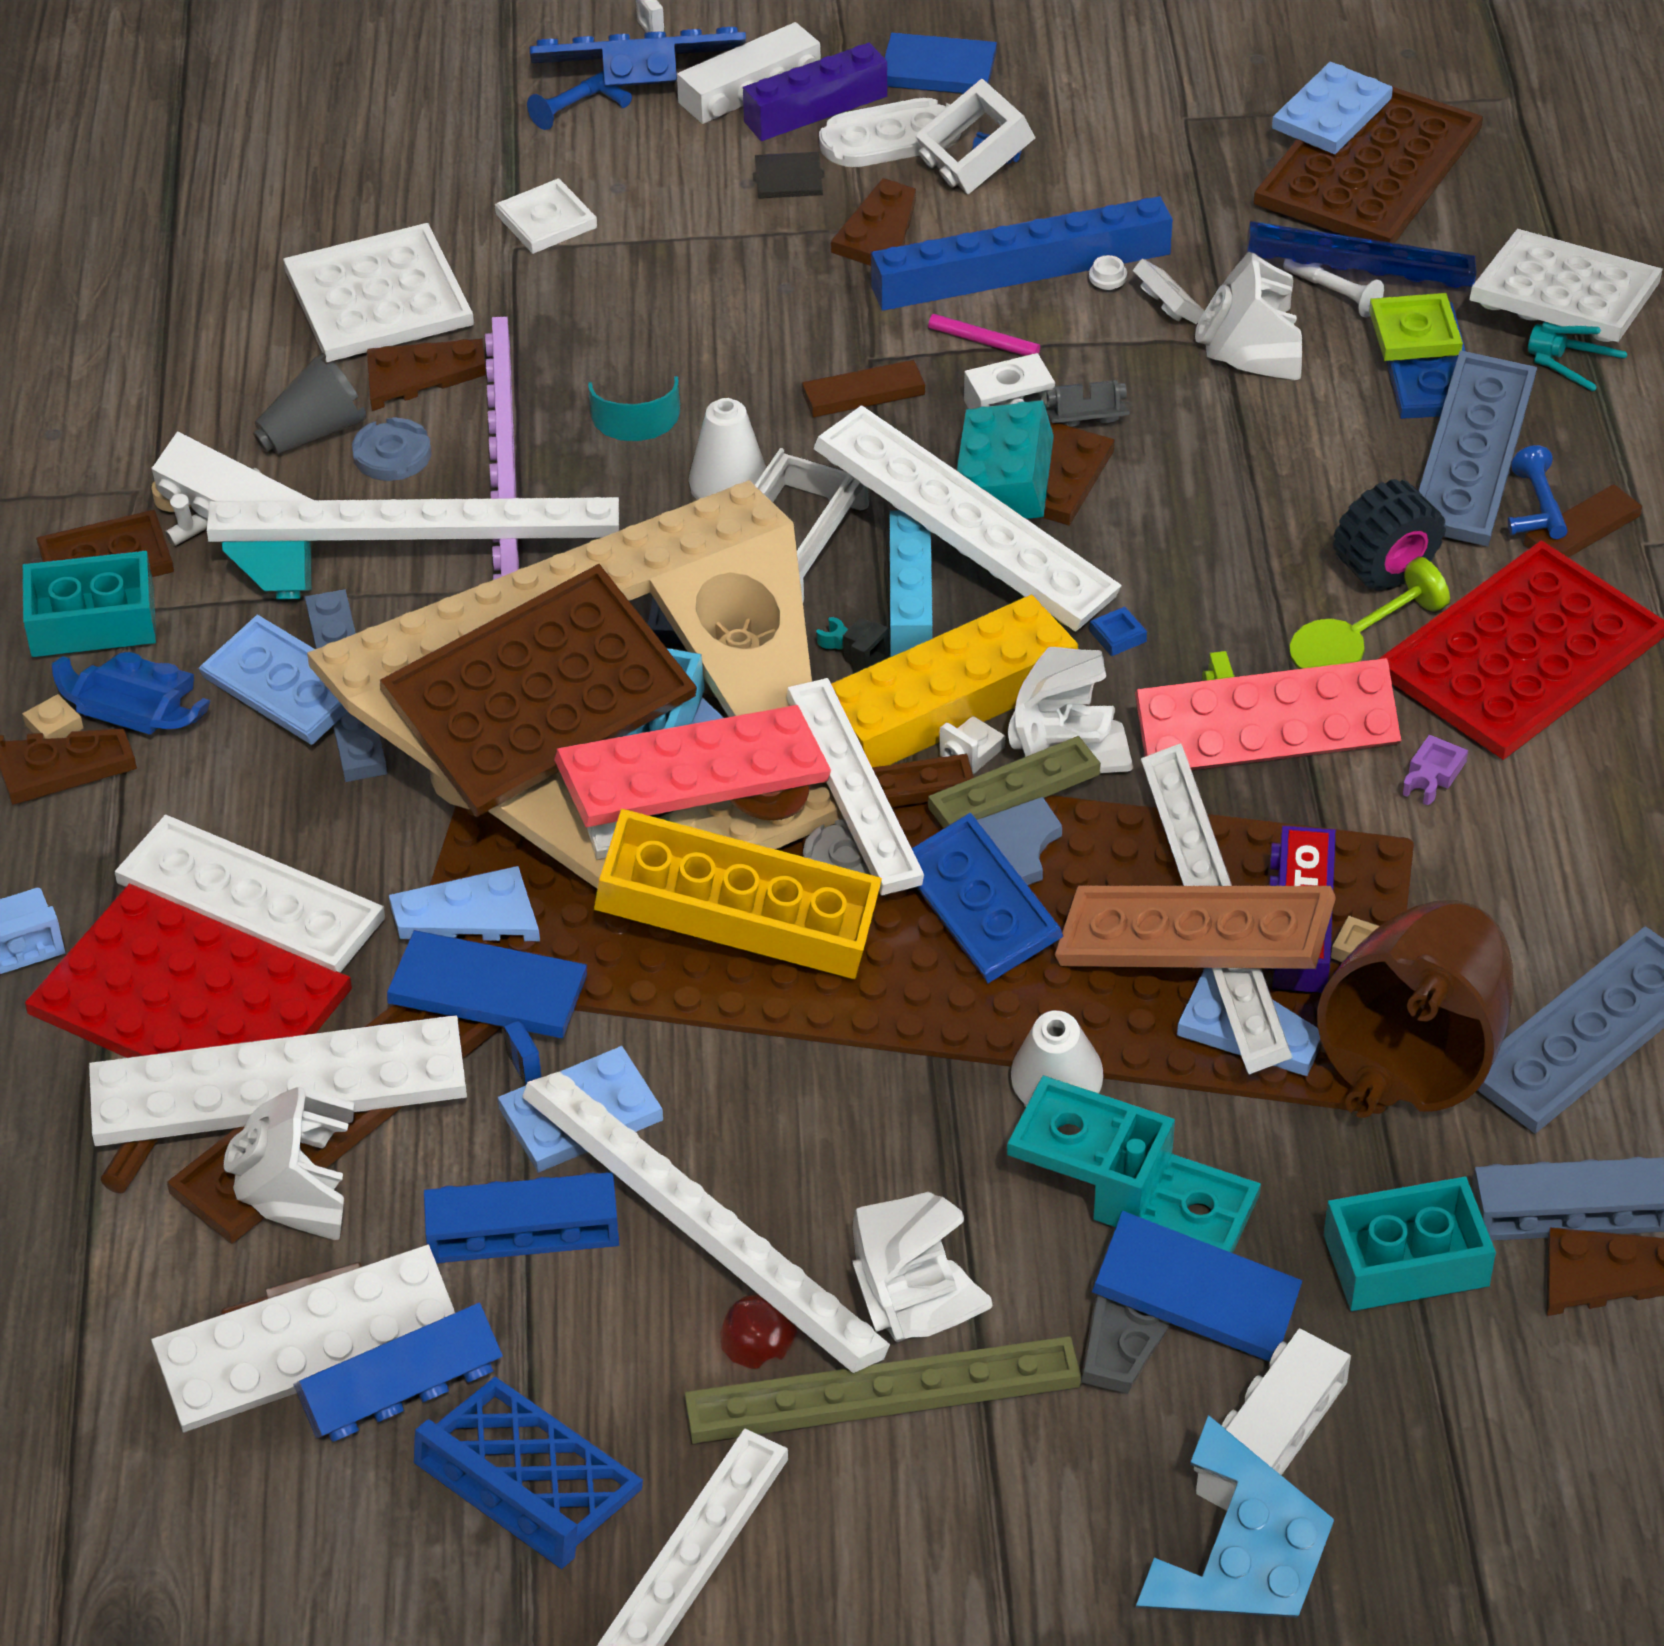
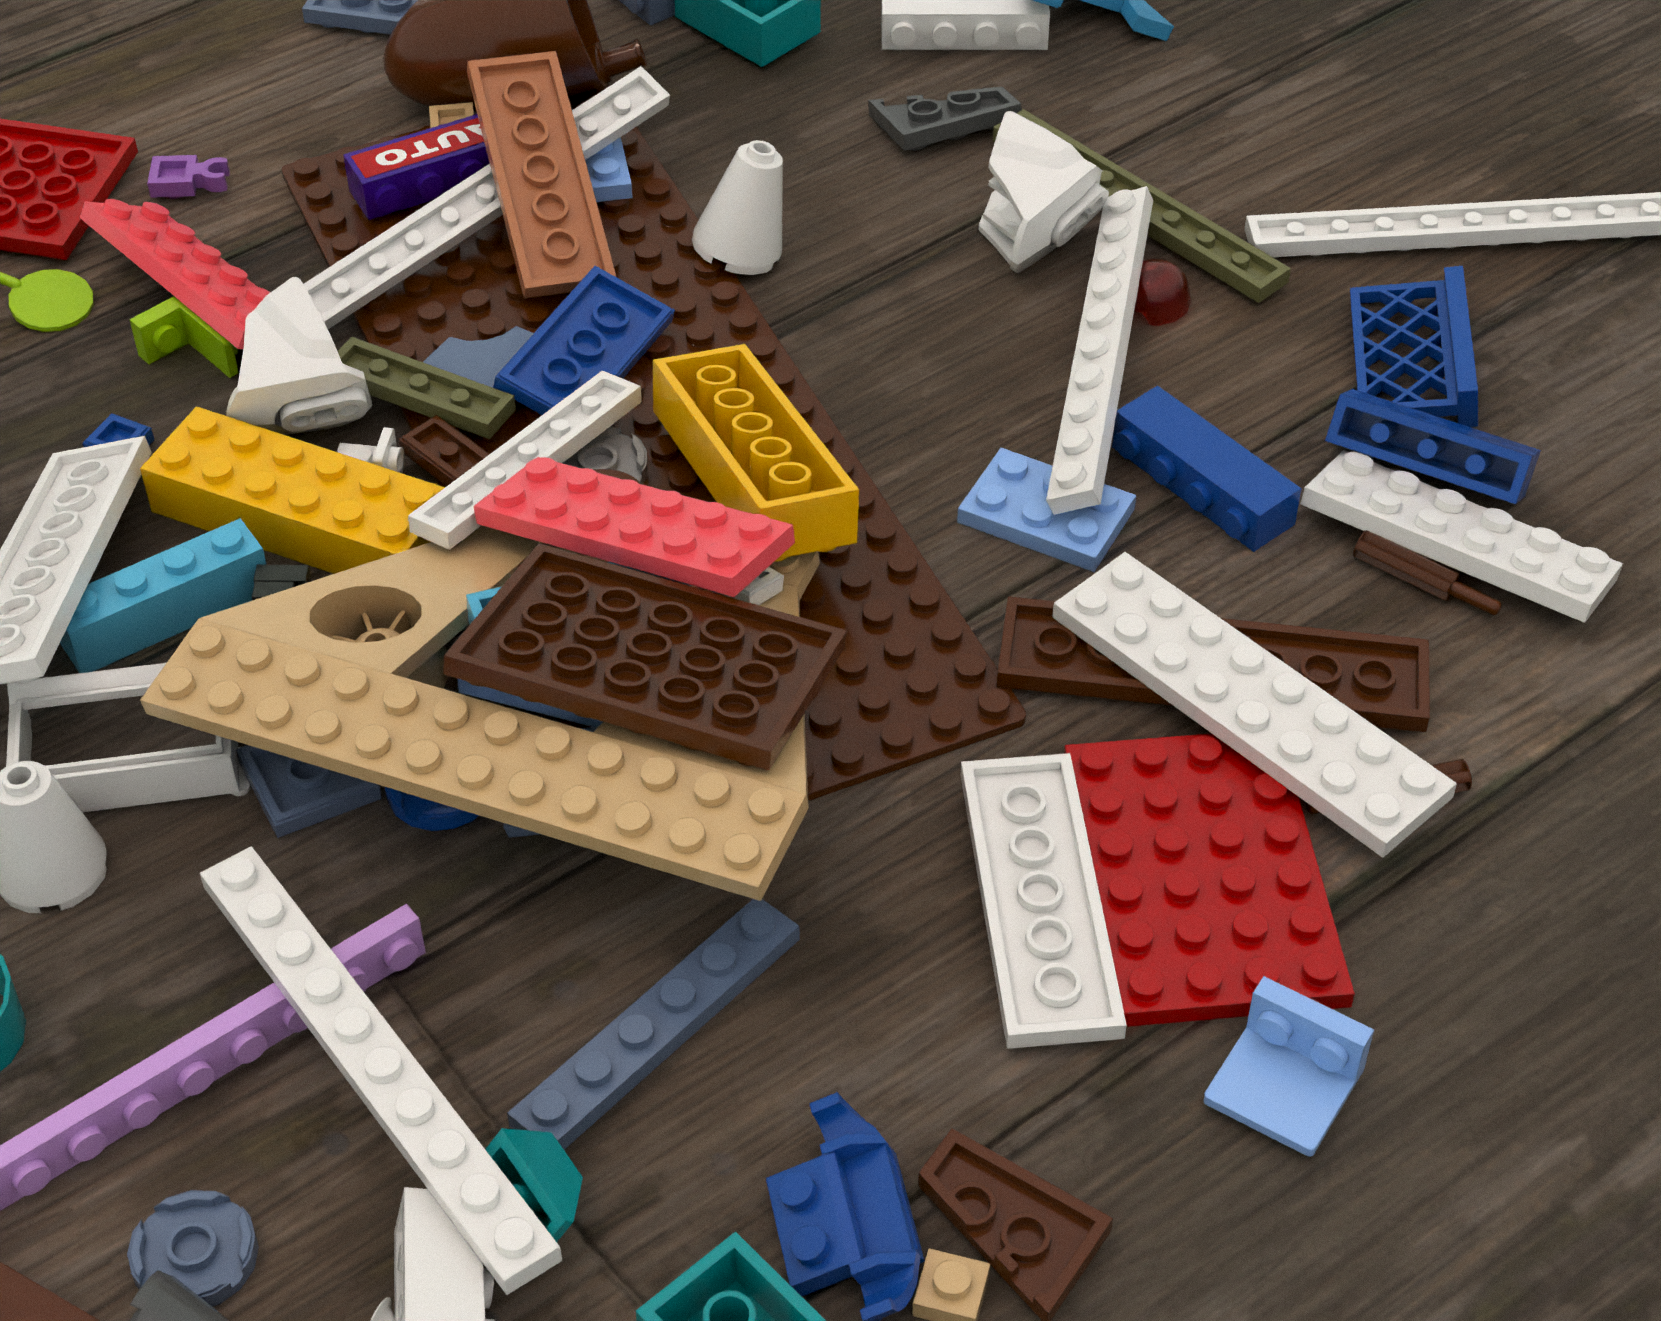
camera: 125 degrees left, 0 degrees up
(274, 677) = (710, 1068): light blue tile -> none
(276, 1173) = (1327, 599): white piece -> none
(477, 904) = (905, 693): light blue wing -> none
(487, 983) = (990, 616): blue tile -> none
(522, 1052) = (1034, 562): blue tile -> none
(1131, 1163) = (818, 140): teal bracket -> none
(1197, 1286) = (884, 89): blue tile -> none

